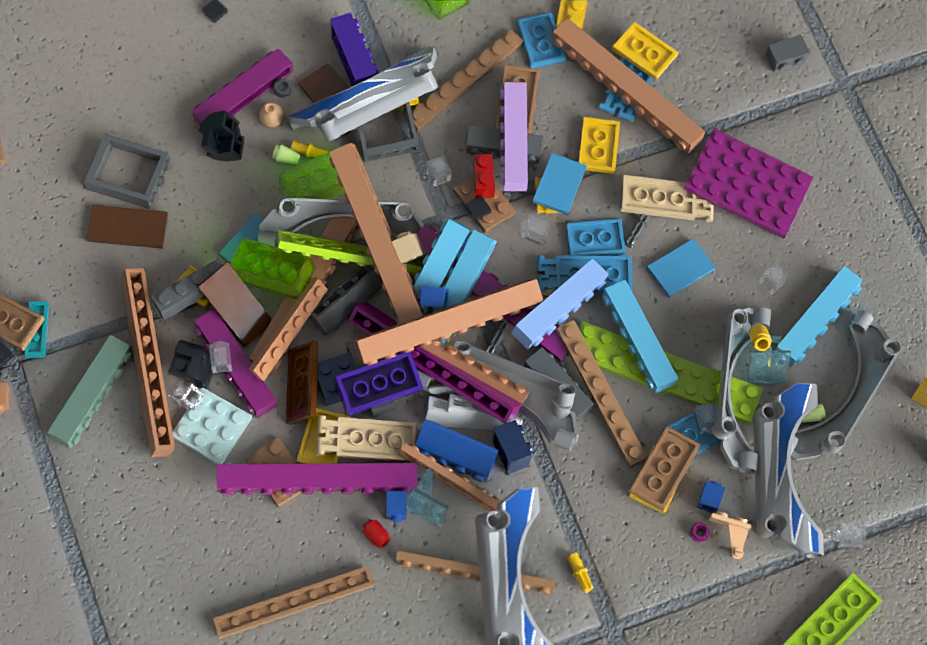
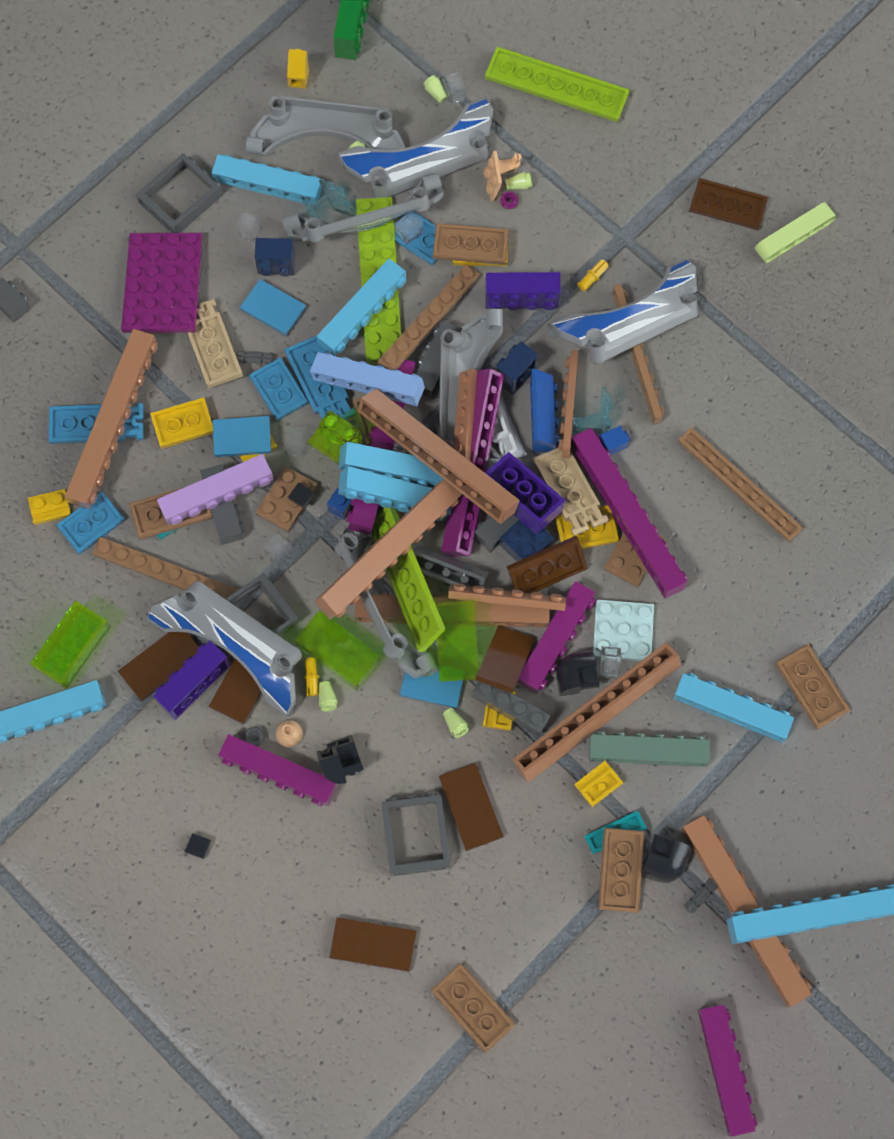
camera: 110 degrees left, 5 degrees up
(59, 103) = (373, 944): none -> reddish brown tile
(67, 568) = (812, 687): none -> medium nougat tile
(86, 336) = (598, 784): none -> yellow plate
(86, 483) = (733, 708): none -> medium azure brick
(205, 245) = (456, 724): none -> yellowish green cone
(220, 357) = (564, 643): clear brick -> none
(376, 533) = (647, 446): red brick -> none
(384, 38) = (157, 663): none -> reddish brown tile
(408, 247) = (384, 519): tan brick -> none
(433, 296) = (420, 478): blue brick -> none
(483, 175) = (268, 501): red brick -> none
(513, 252) = (332, 434): none -> clear neon green brick
(591, 487) = (522, 290): none -> dark purple brick
(645, 51) = (65, 418): yellow plate -> none
(711, 497) = (475, 201): blue brick -> none
(715, 551) = (519, 181): none -> yellowish green cone
(728, 283) = (275, 256): none -> dark blue brick
(760, 337) = (318, 207): yellow brick -> none
(827, 206) = (194, 210): none -> dark grey window
(859, 517) = (435, 89): none -> yellowish green cone

